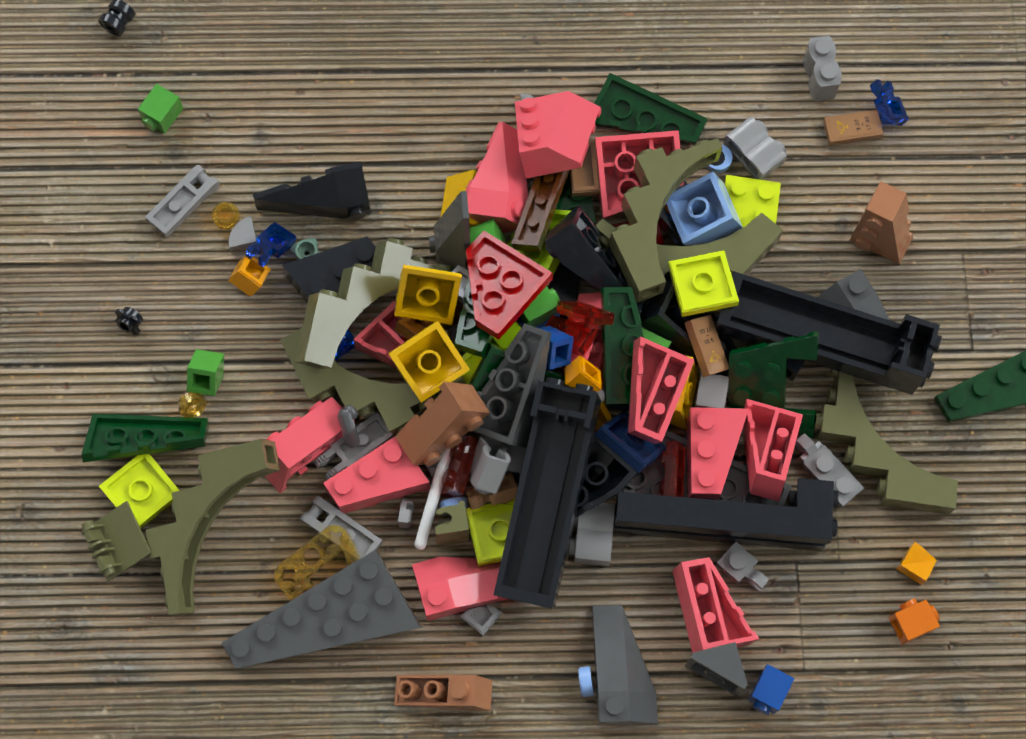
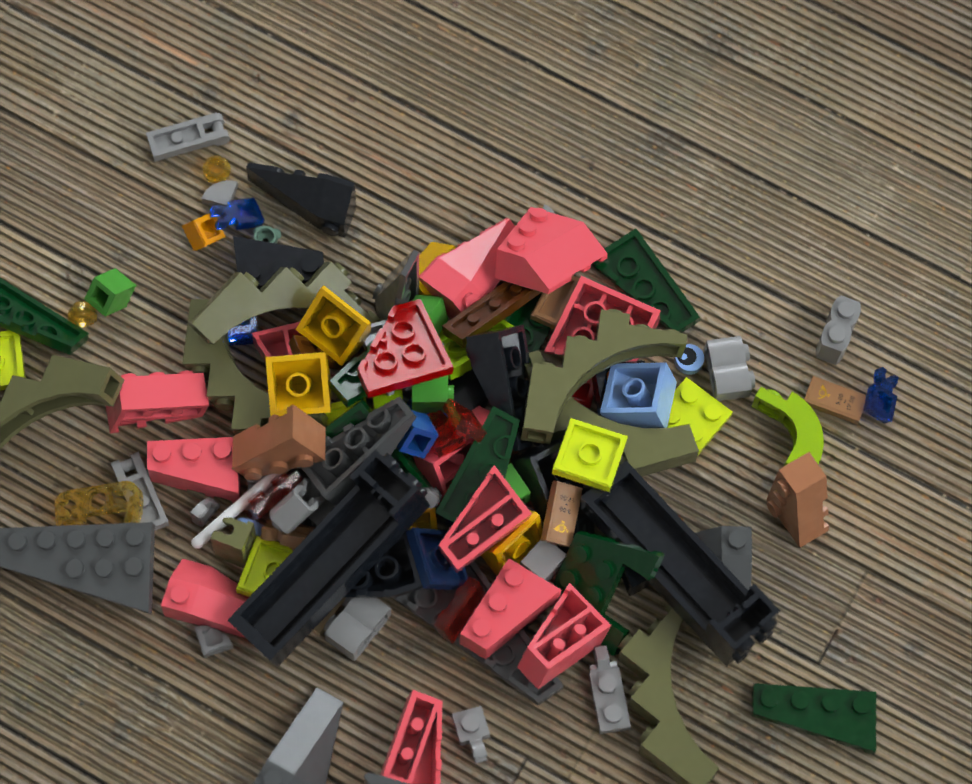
camera: 30 degrees right, 5 degrees down
(129, 320) = (76, 212): black plate -> none
(160, 109) = (218, 48): bright green brick -> none
(347, 425) = (197, 407): dark grey arm -> none
(372, 434) = (197, 425): light grey hinge -> none
(444, 692) = (138, 684): nougat slope -> none
(583, 372) = (427, 472): light orange slope -> none
(586, 681) = (265, 747): light blue tile -> none
(801, 525) = (544, 723): black brick -> none
(843, 163) = (797, 418): none -> lime arch

